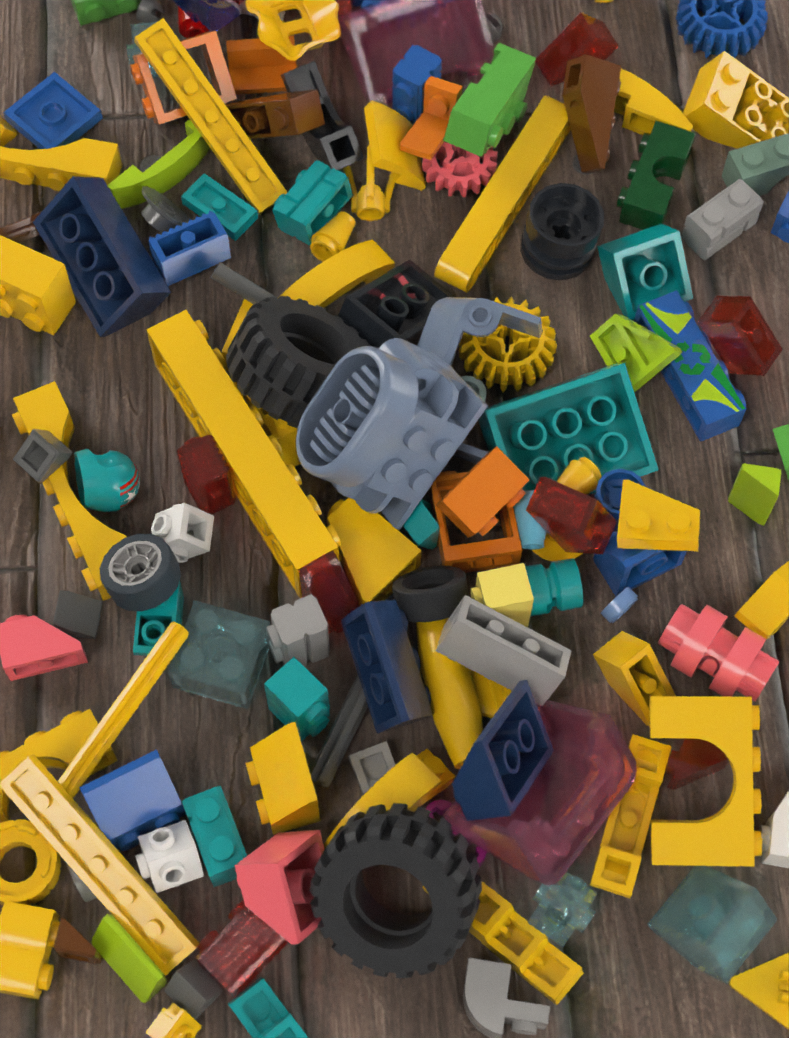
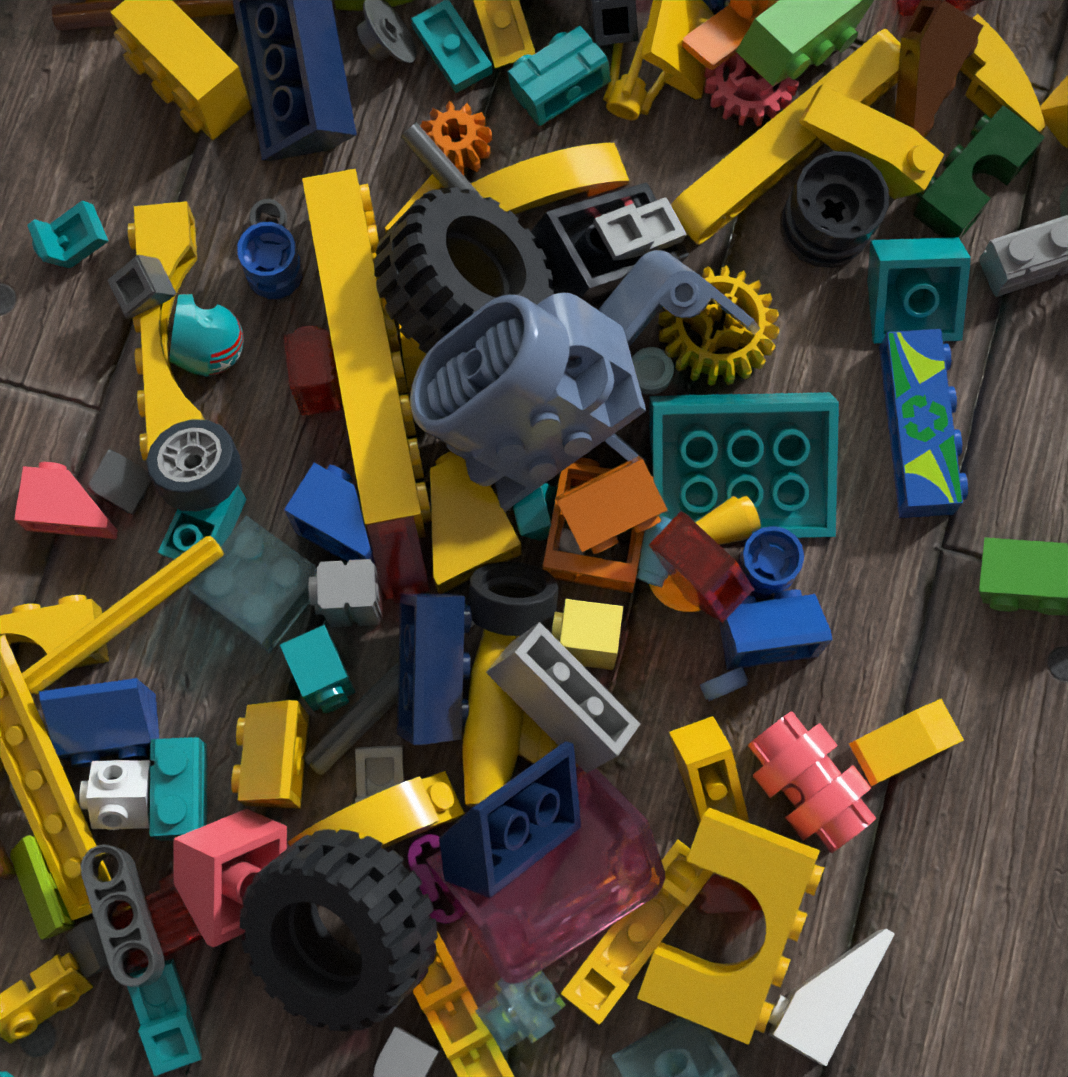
camera: 20 degrees right, 10 degrees up
(123, 368) = (269, 207): none -> dark grey hinge
(138, 405) = (270, 260): none -> blue wheel
(184, 530) = (264, 428): white brick -> none
(190, 248) = (395, 88): blue brick -> none
(201, 928) = (105, 898): none -> dark grey beam
(255, 266) = (469, 130): none -> orange gear
(263, 576) = (330, 513): none -> blue slope
(332, 236) = (568, 125): yellow cone -> none
(420, 291) = (639, 230): none -> light grey slope
(551, 166) = (891, 146): none -> yellow slope
(555, 586) = (653, 636): teal wheel -> none
(630, 343) = (861, 383): lime wing -> none
(655, 521) = (794, 609): yellow wing -> none
(740, 335) = (993, 410): clear red brick -> none
(756, 491) = (933, 607): lime slope -> none

